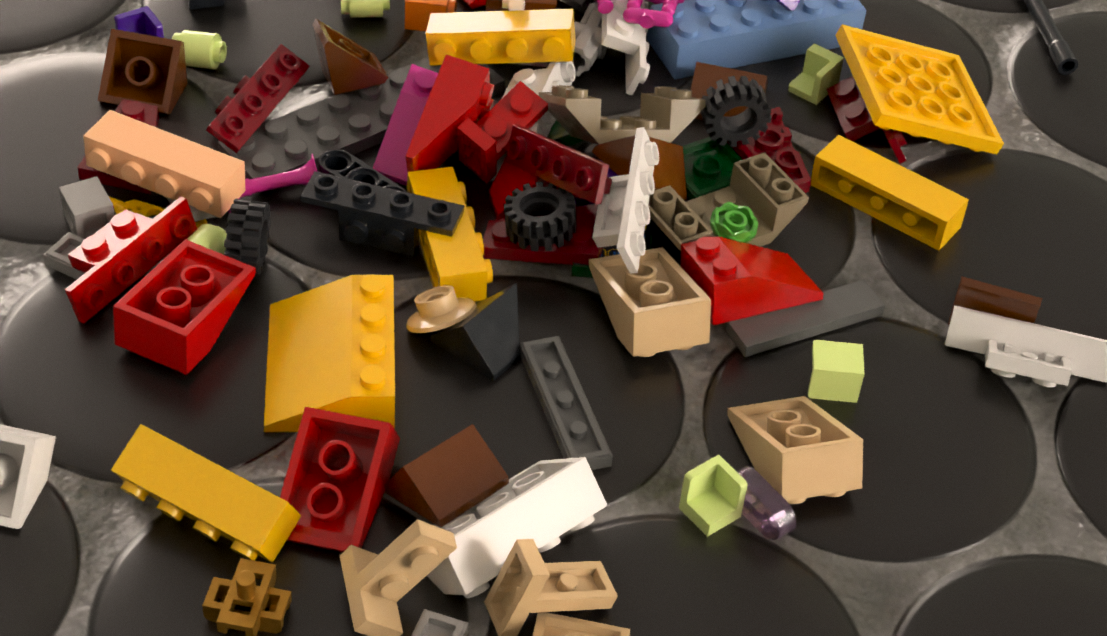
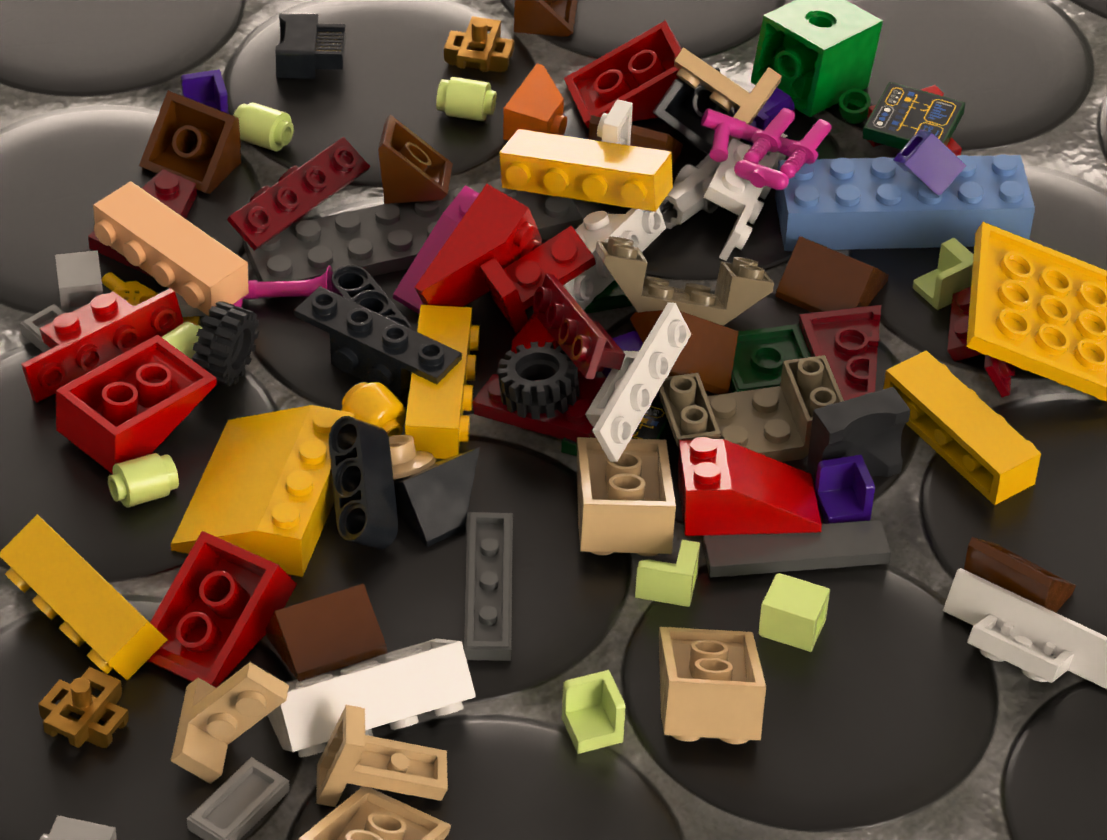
camera: 20 degrees right, 0 degrees up
(216, 372) = (143, 479): none -> yellowish green brick
(409, 271) = (376, 406): none -> yellow head
(441, 344) = (363, 483): none -> black beam
(718, 367) = (669, 581): none -> yellowish green panel
(734, 222) = (753, 428): bright green plate -> none
(739, 126) = (809, 284): black tyre -> none
(766, 507) = (644, 733): beam -> none
(821, 215) = (860, 426): none -> black brick
(828, 259) = (844, 490): none -> dark purple panel

